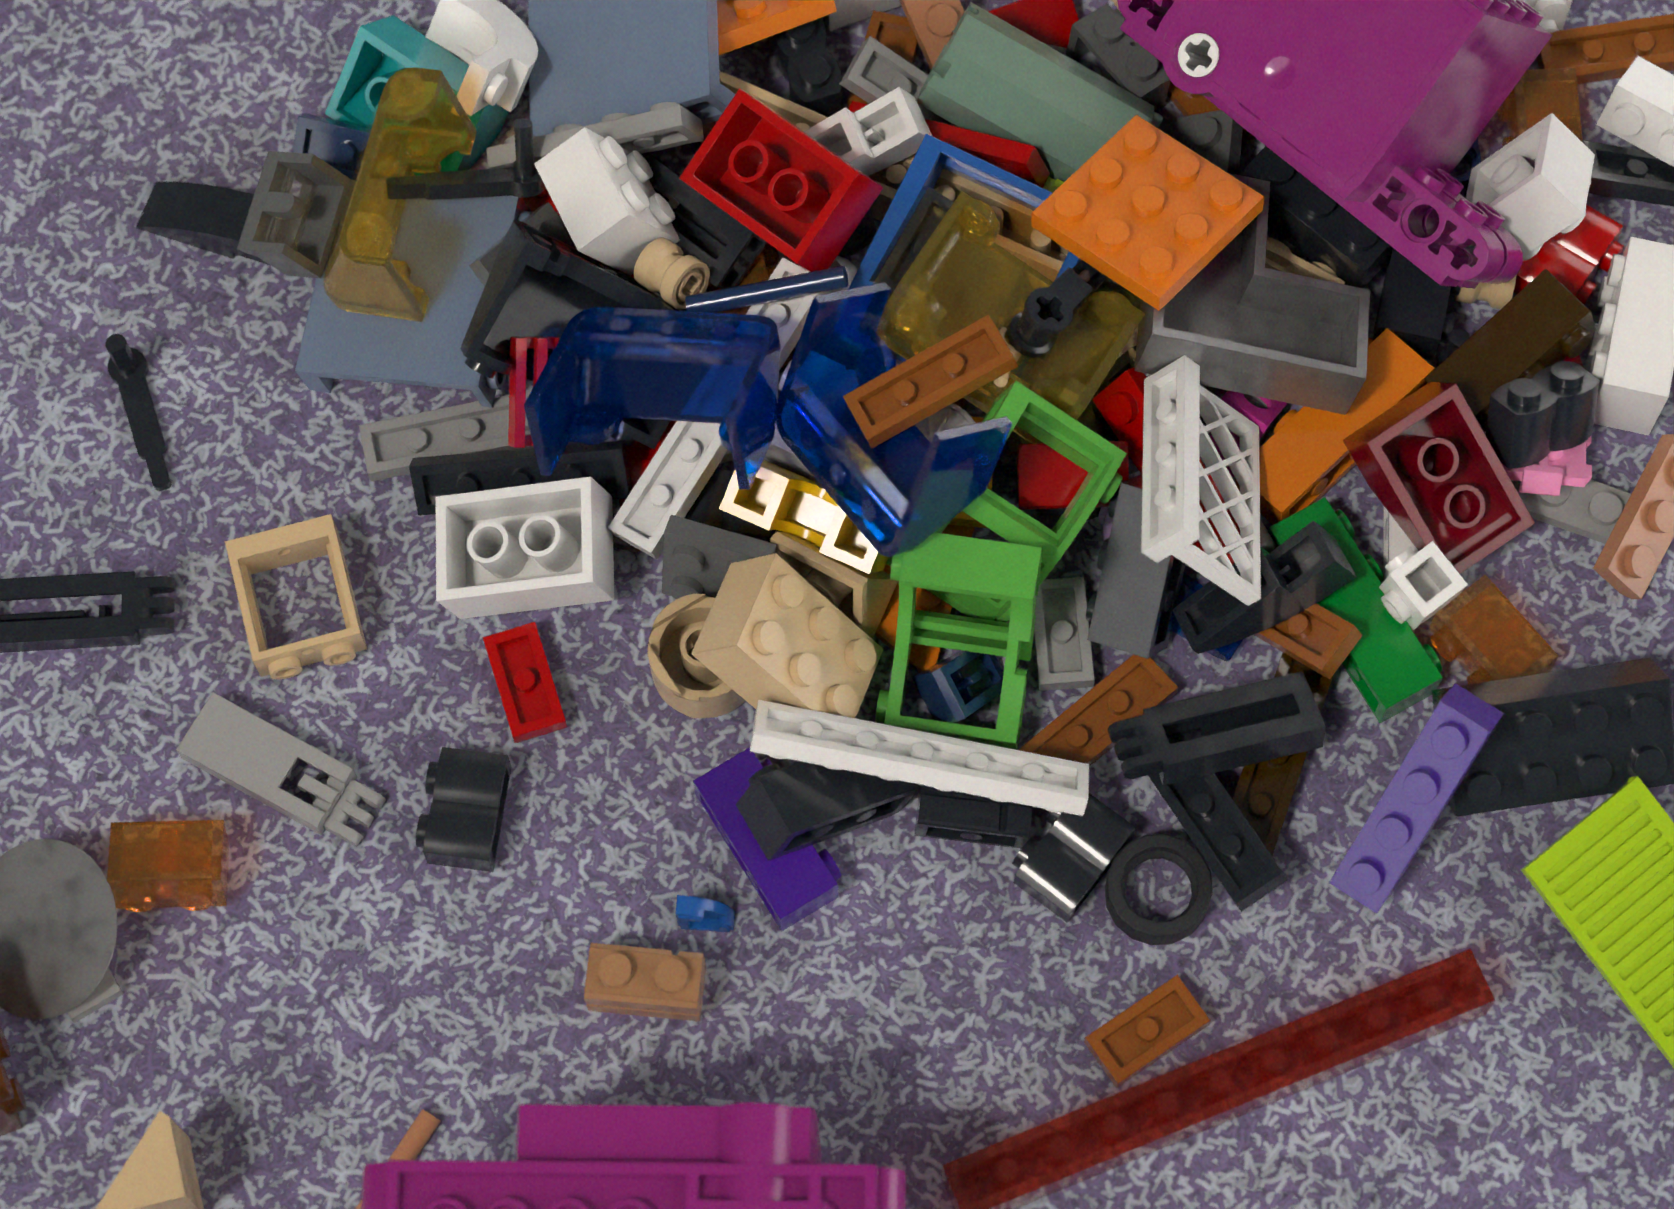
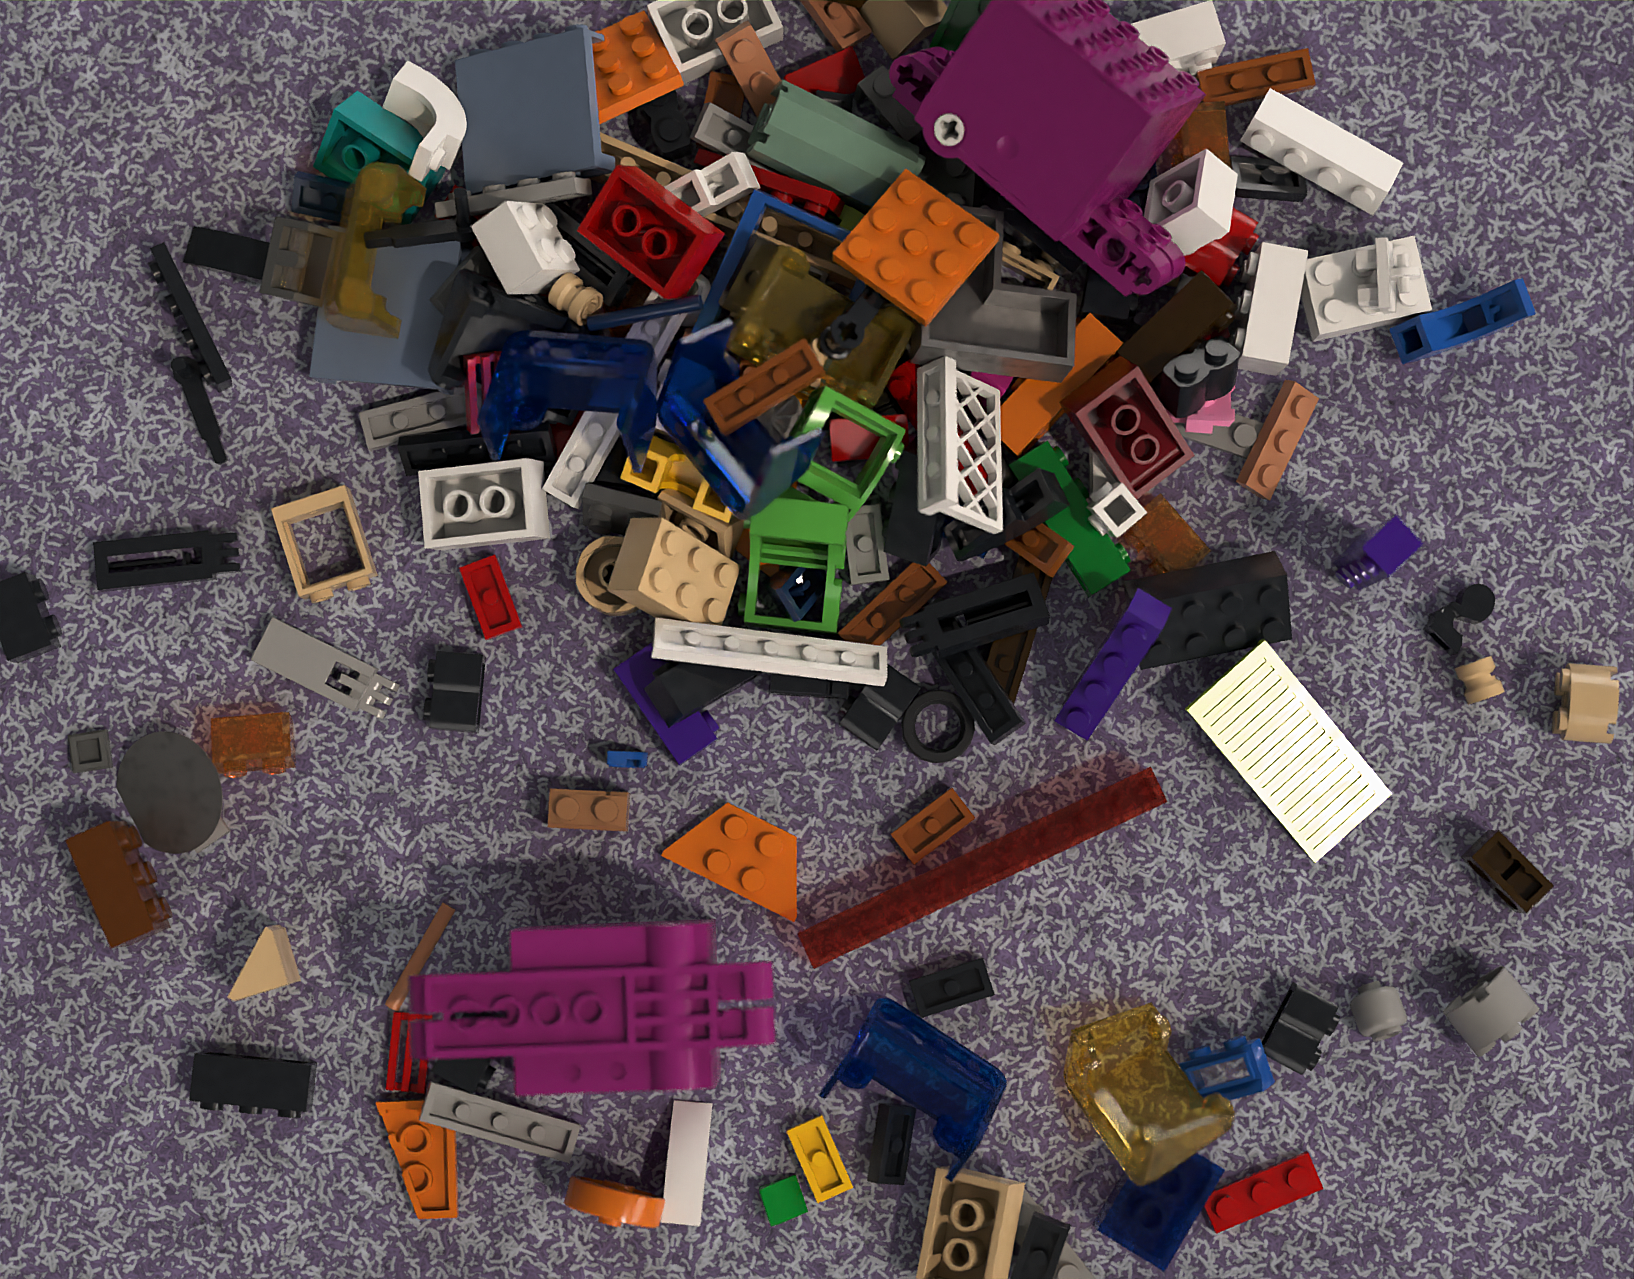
camera: 10 degrees left, 15 degrees up
(145, 312) = (196, 333): none -> black plate
(866, 1065) = (743, 857): none -> orange wing

